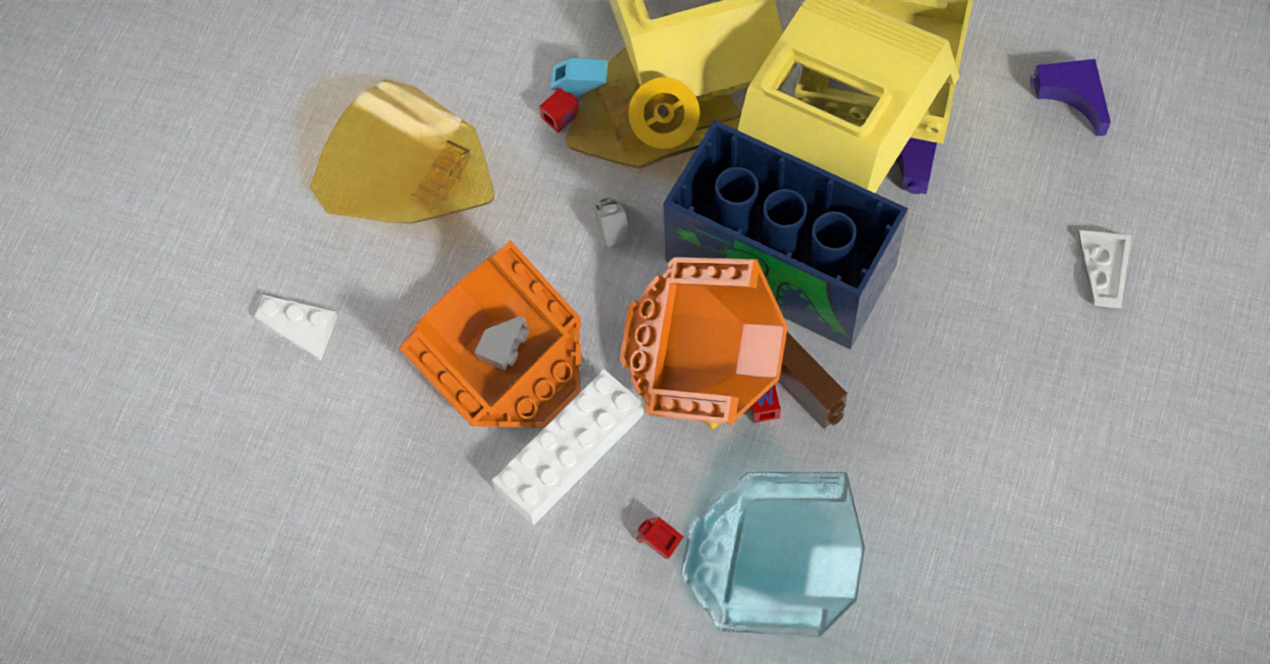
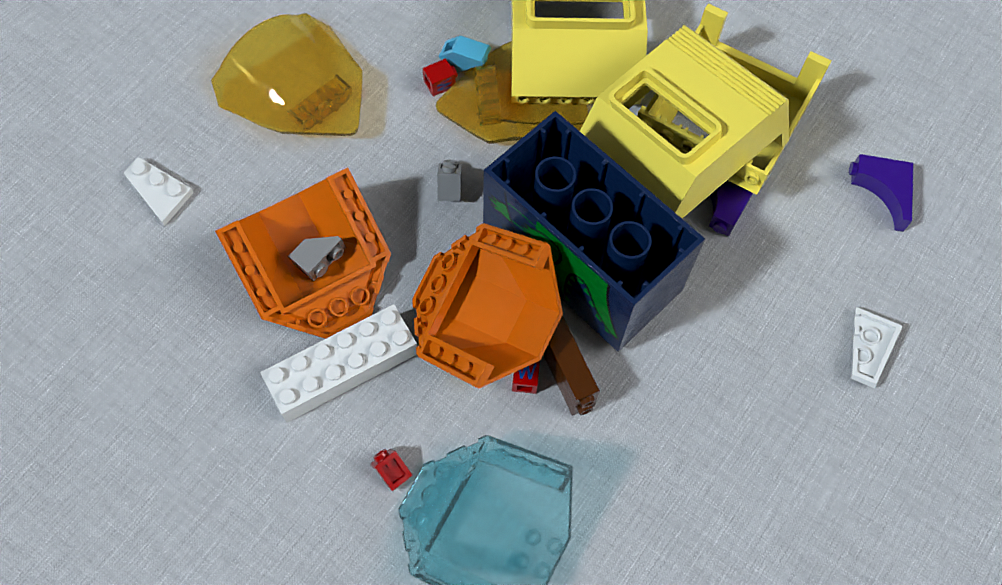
camera: 10 degrees right, 0 degrees up
(664, 113) = (521, 100): yellow piece -> none

